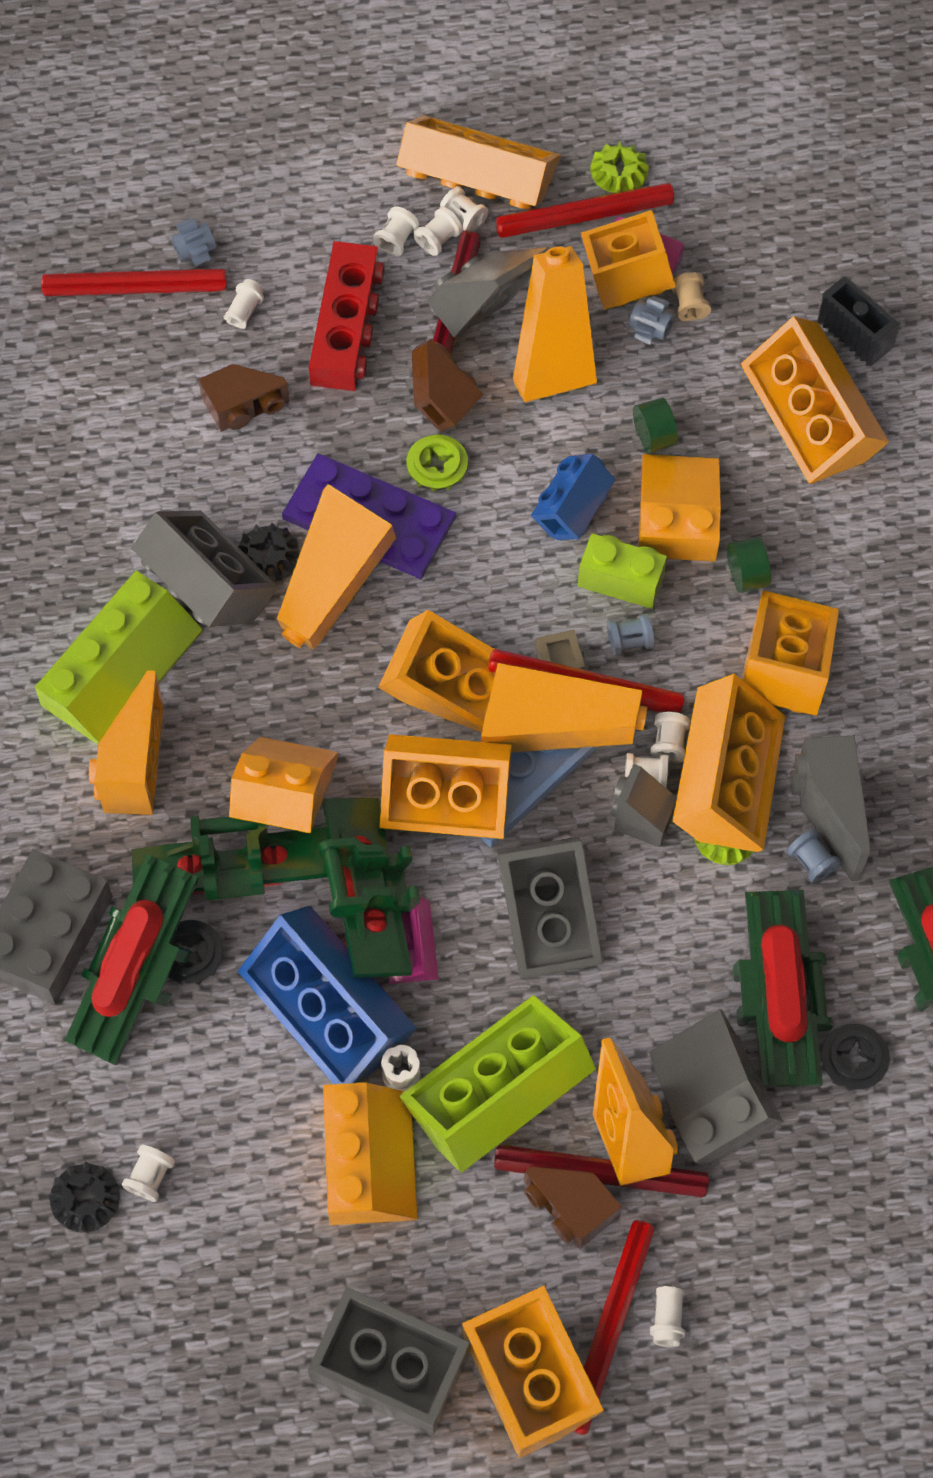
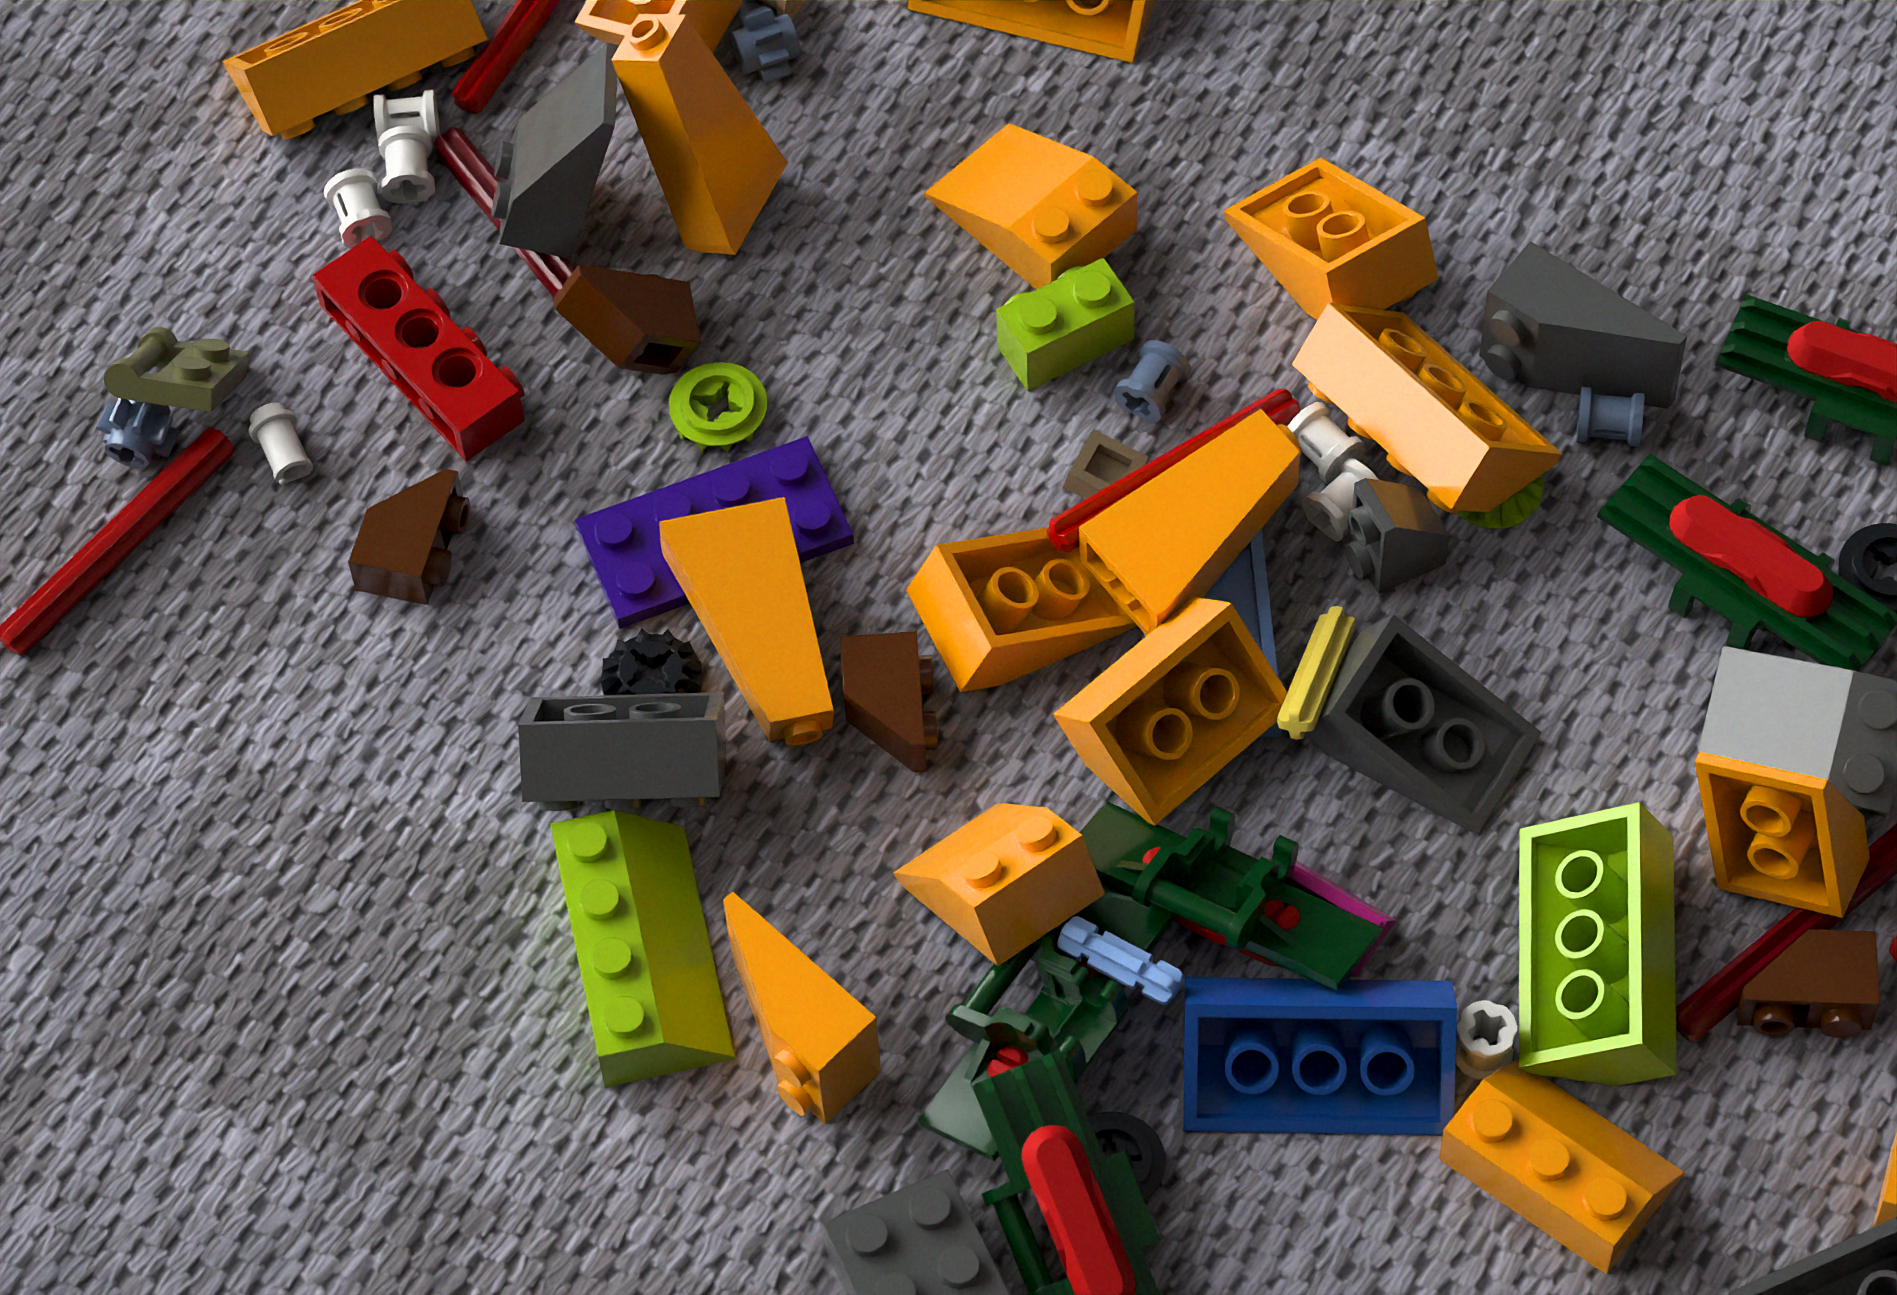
camera: 45 degrees left, 5 degrees down
(230, 241) = (192, 373): none -> olive plate
(282, 868) = (1120, 960): none -> light blue axle
(347, 655) = (884, 693): none -> reddish brown slope
(530, 833) = (1316, 672): none -> light yellow axle
(573, 497) = (918, 298): blue brick -> none
(655, 425) = (909, 145): dark green piece -> none
(749, 564) = (1185, 193): dark green piece -> none

